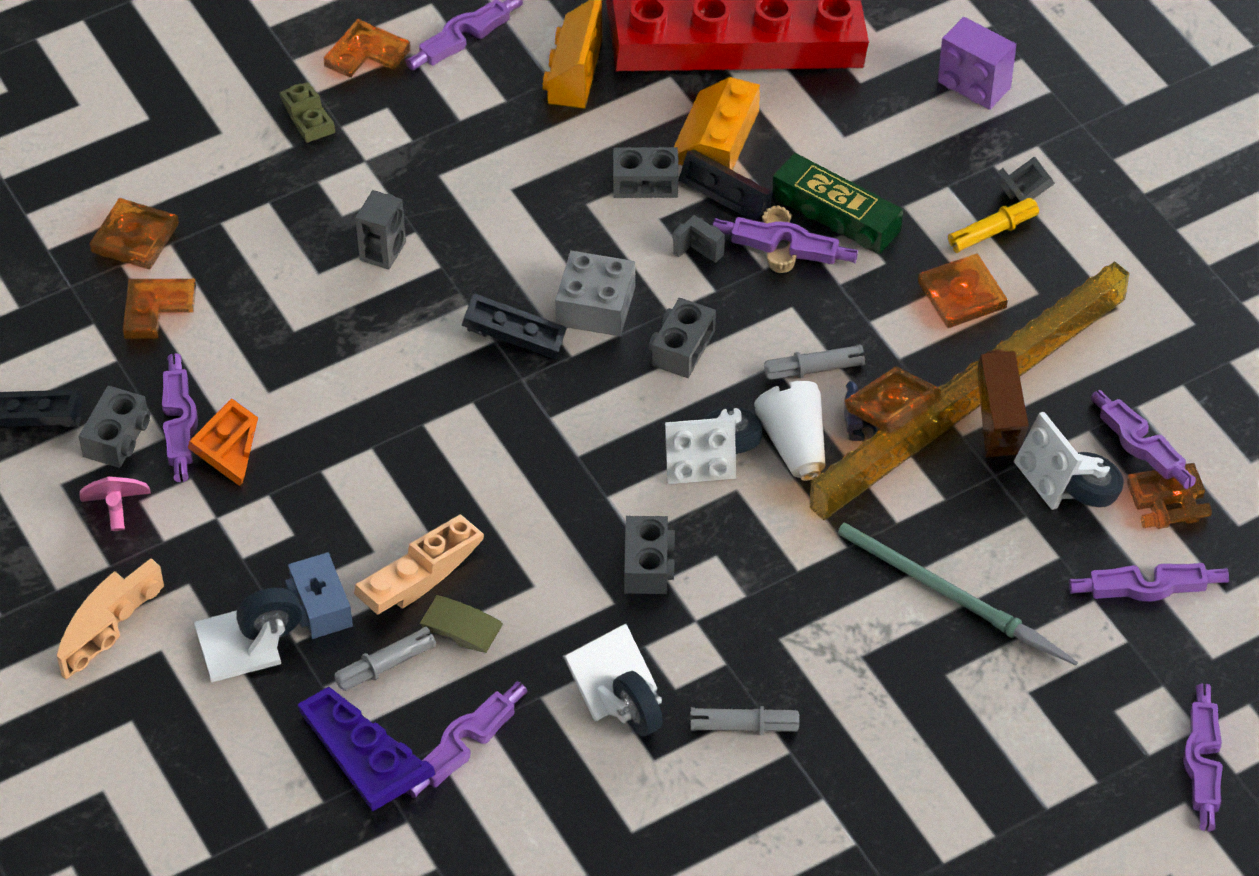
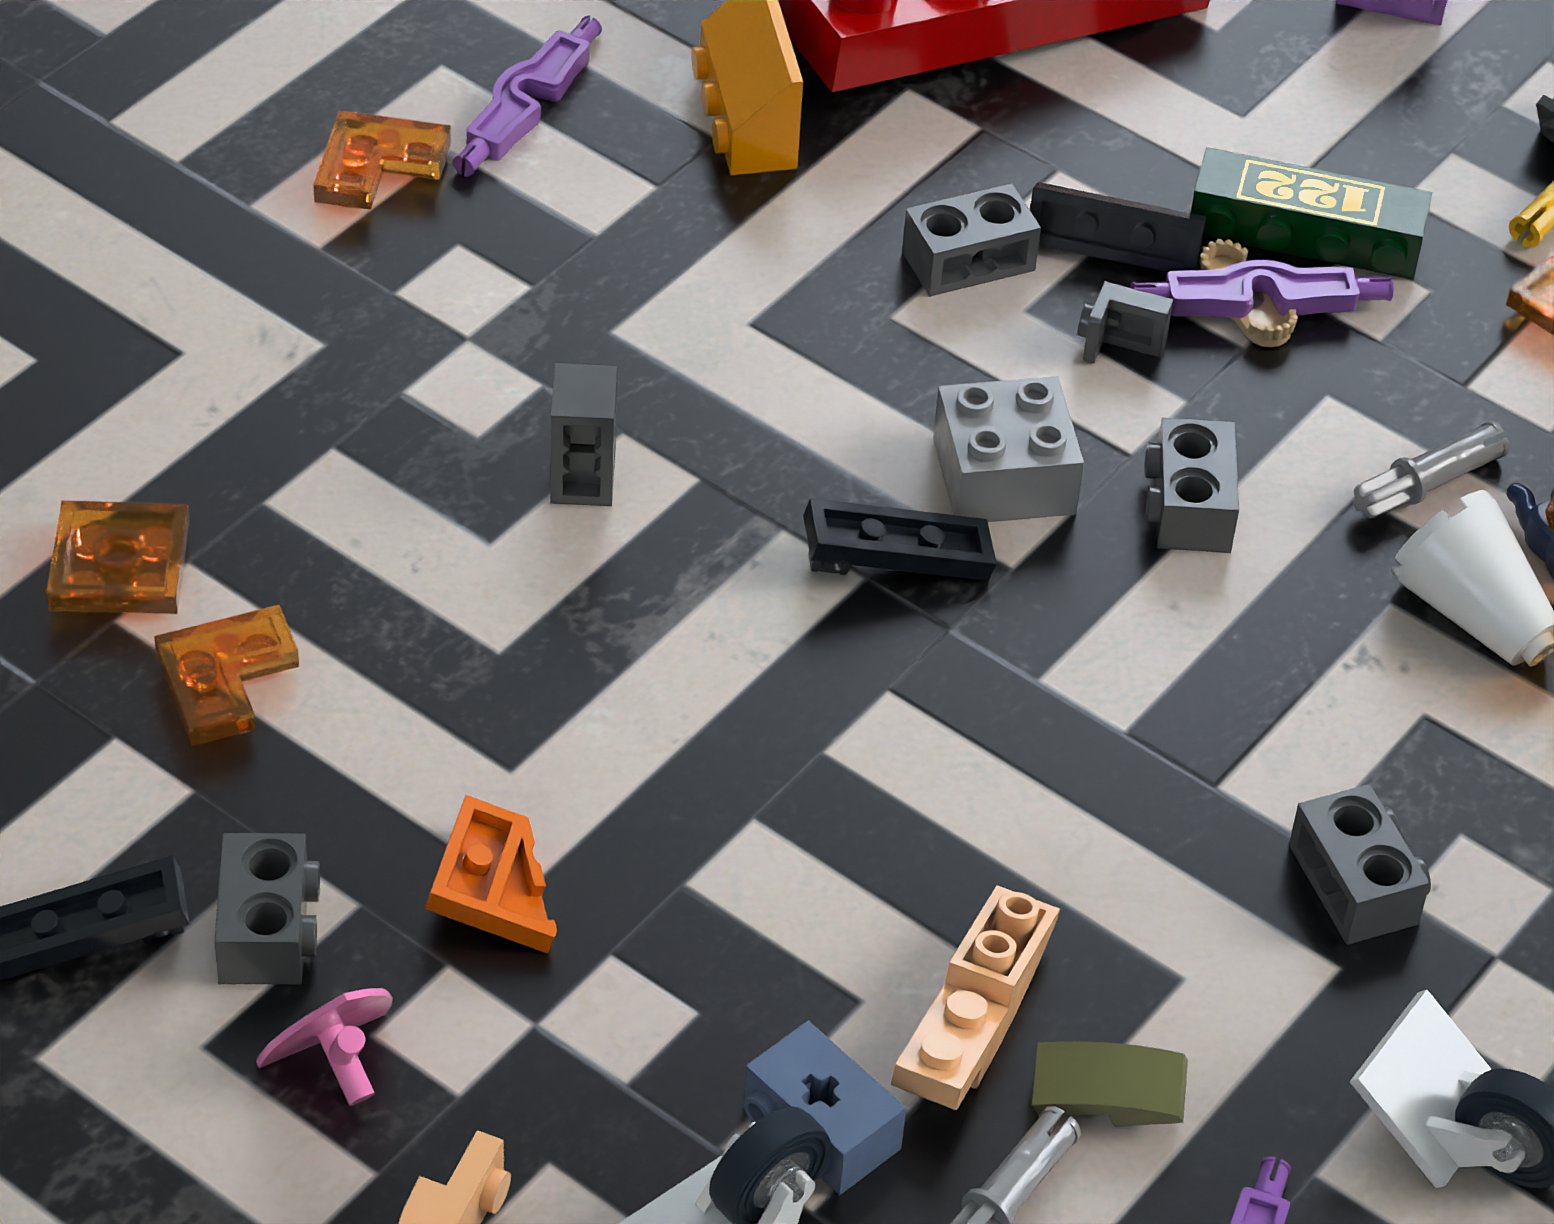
camera: 25 degrees left, 5 degrees down
(179, 430) = (383, 885): medium lavender piece -> none
(307, 112) = (321, 281): olive slope -> none
(709, 446) = (1358, 647): white plate -> none
(720, 121) = (1041, 127): light orange slope -> none

